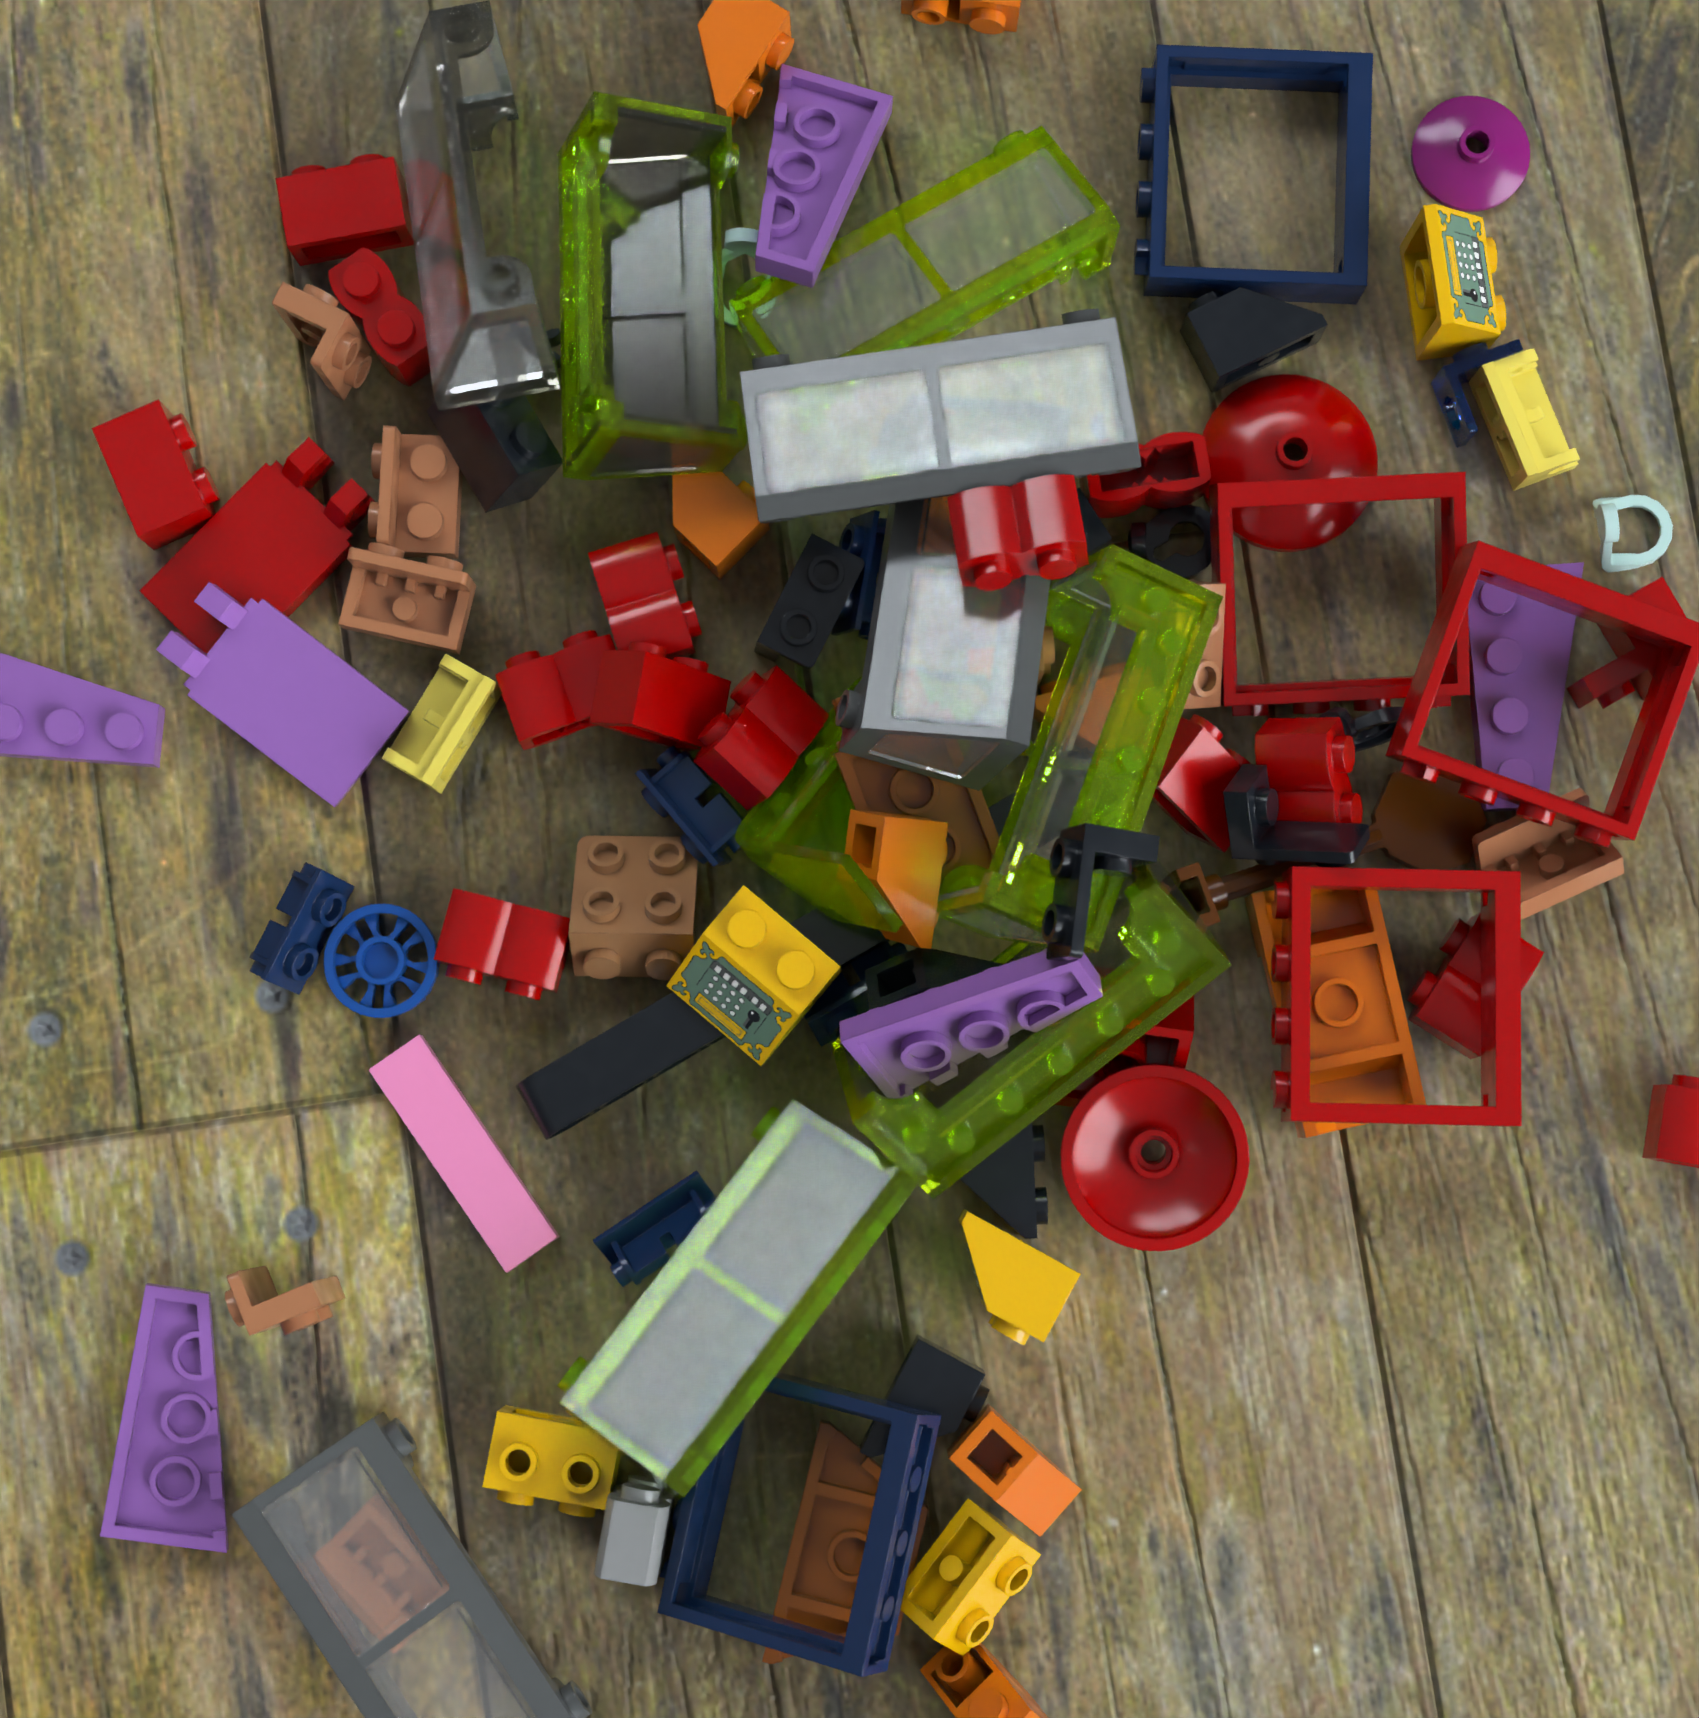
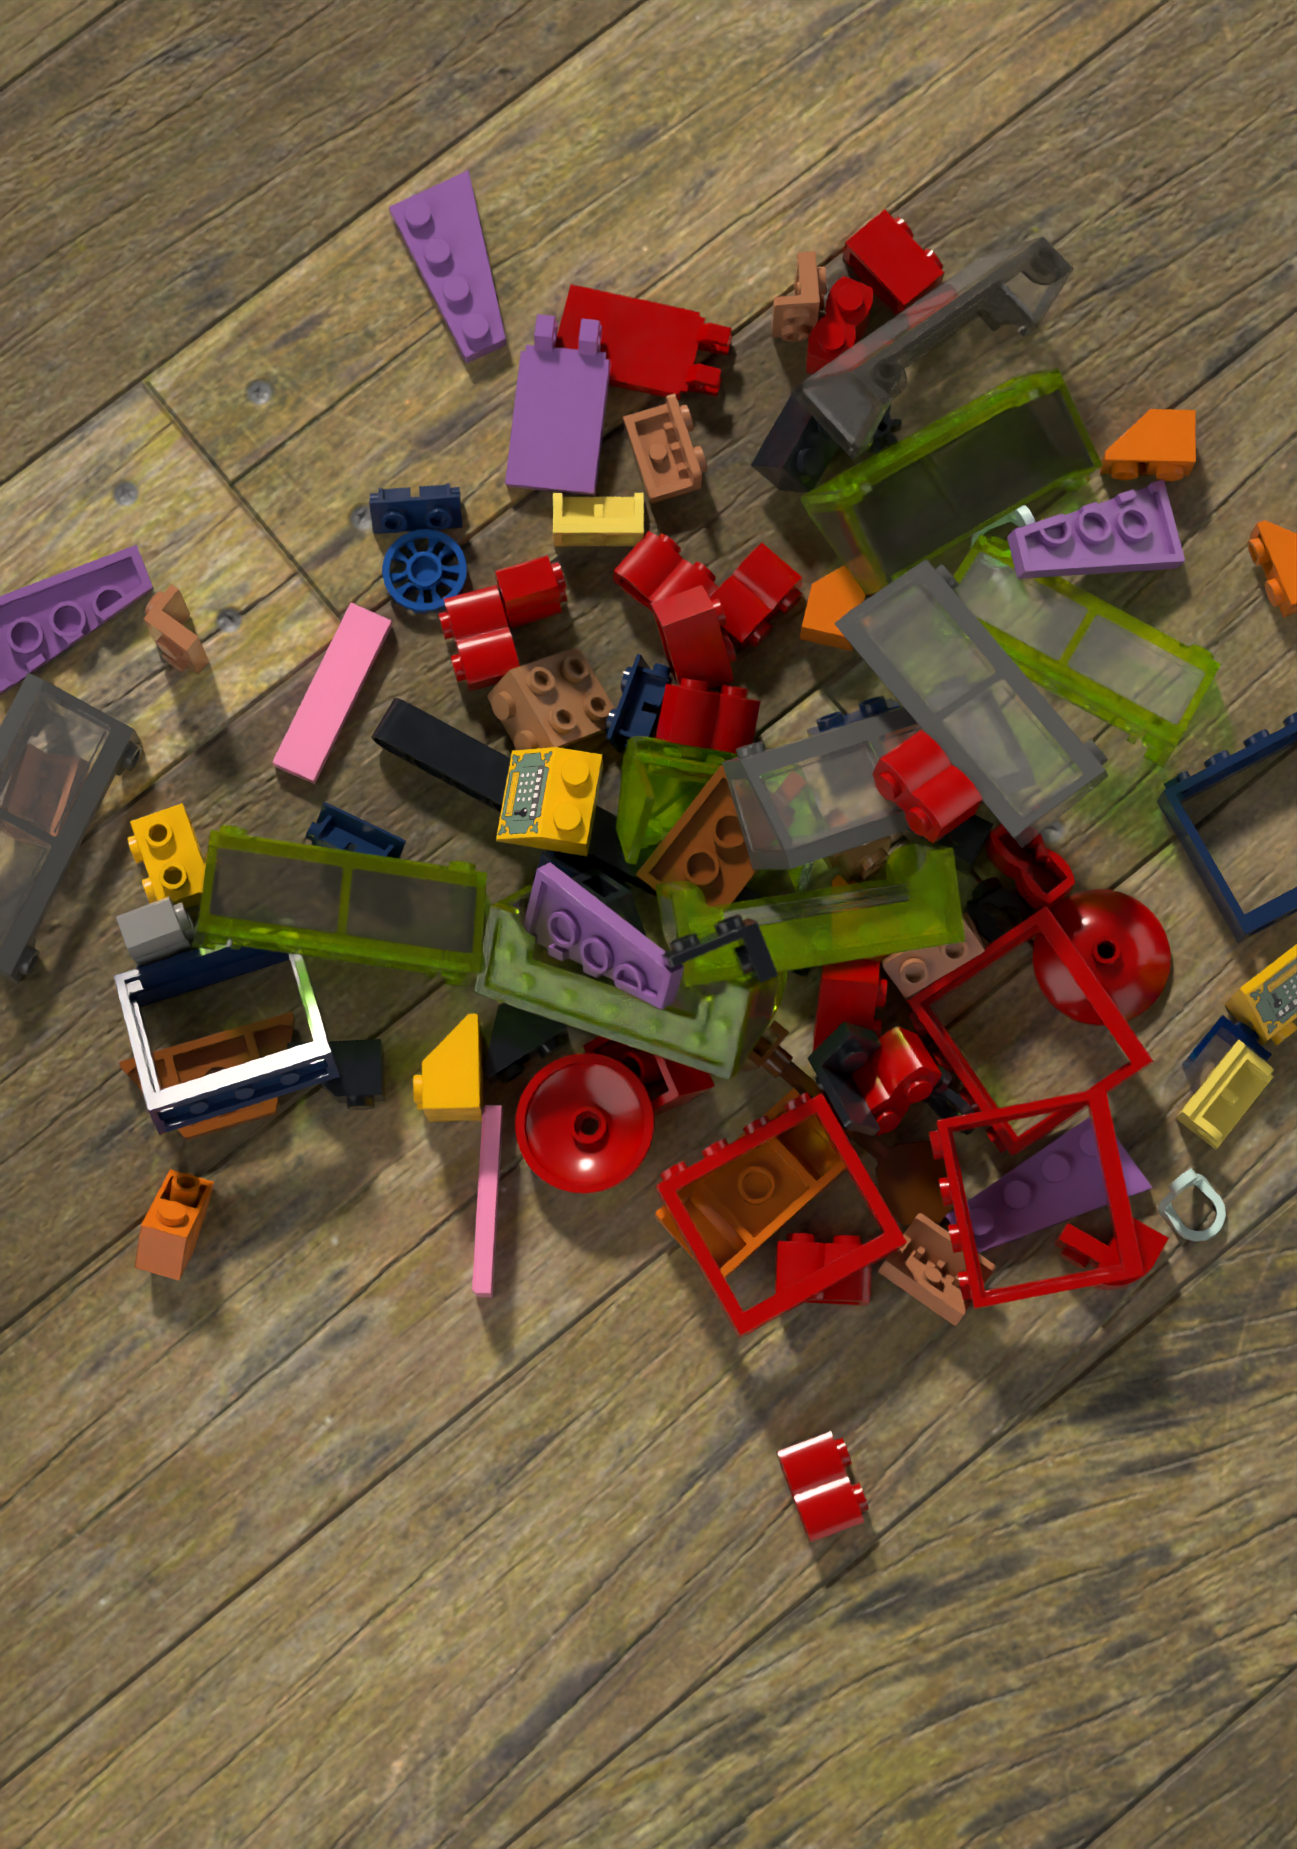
camera: 55 degrees right, 5 degrees down
(157, 474) = (651, 250): red piece -> none
(416, 495) = (735, 417): nougat bracket -> none
(486, 851) = (531, 590): none -> red brick
(810, 603) = (813, 698): black bracket -> none
(904, 864) = (672, 844): orange slope -> none
(967, 1578) = (245, 1157): yellow brick -> none
(1012, 1471) = (330, 1150): orange slope -> none
(1176, 1321) = (487, 1201): none -> bright pink tile
(1245, 333) = (1168, 878): black slope -> none

